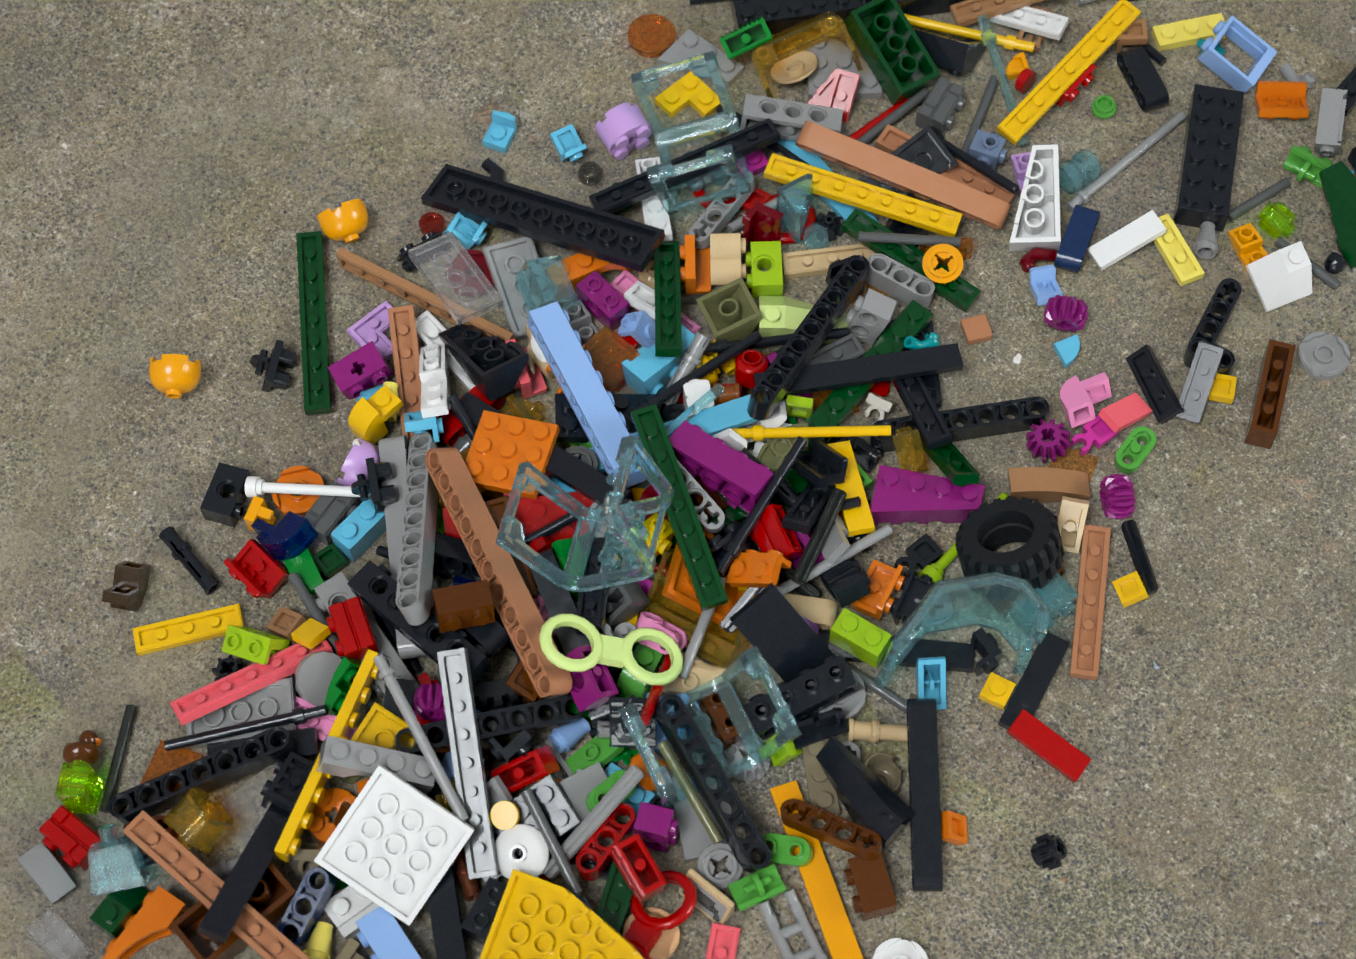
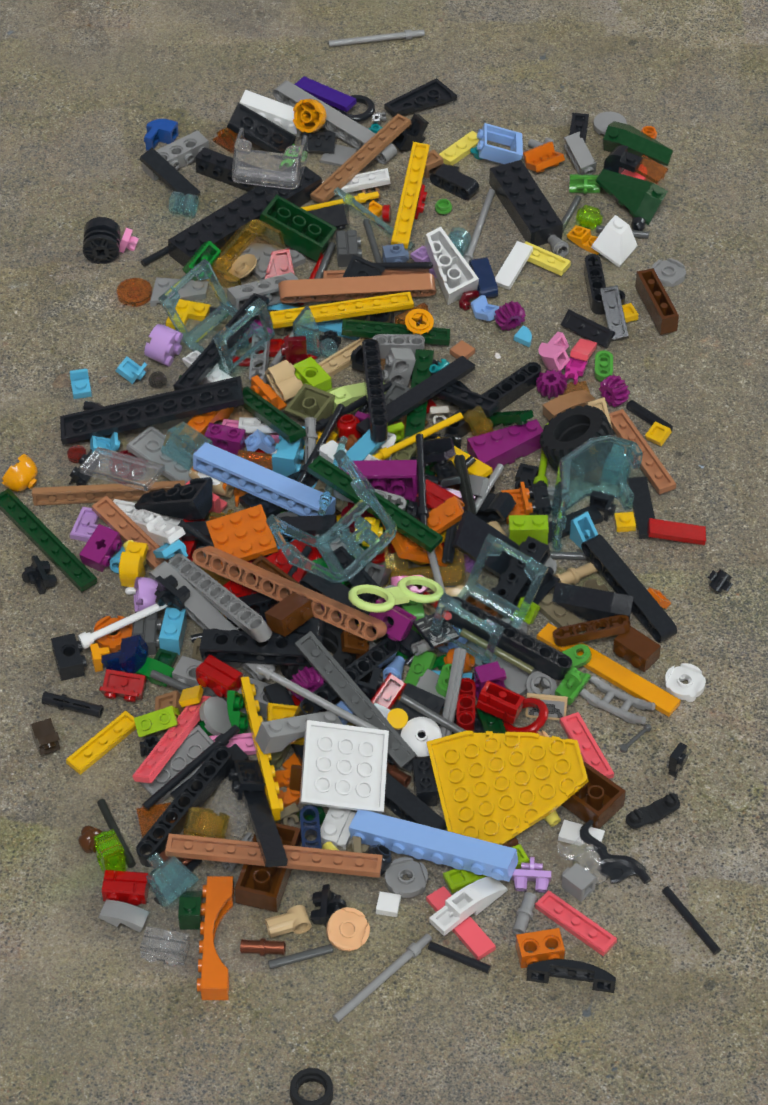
camera: 35 degrees left, 15 degrees down
(907, 239) = (384, 320): dark grey bar -> none

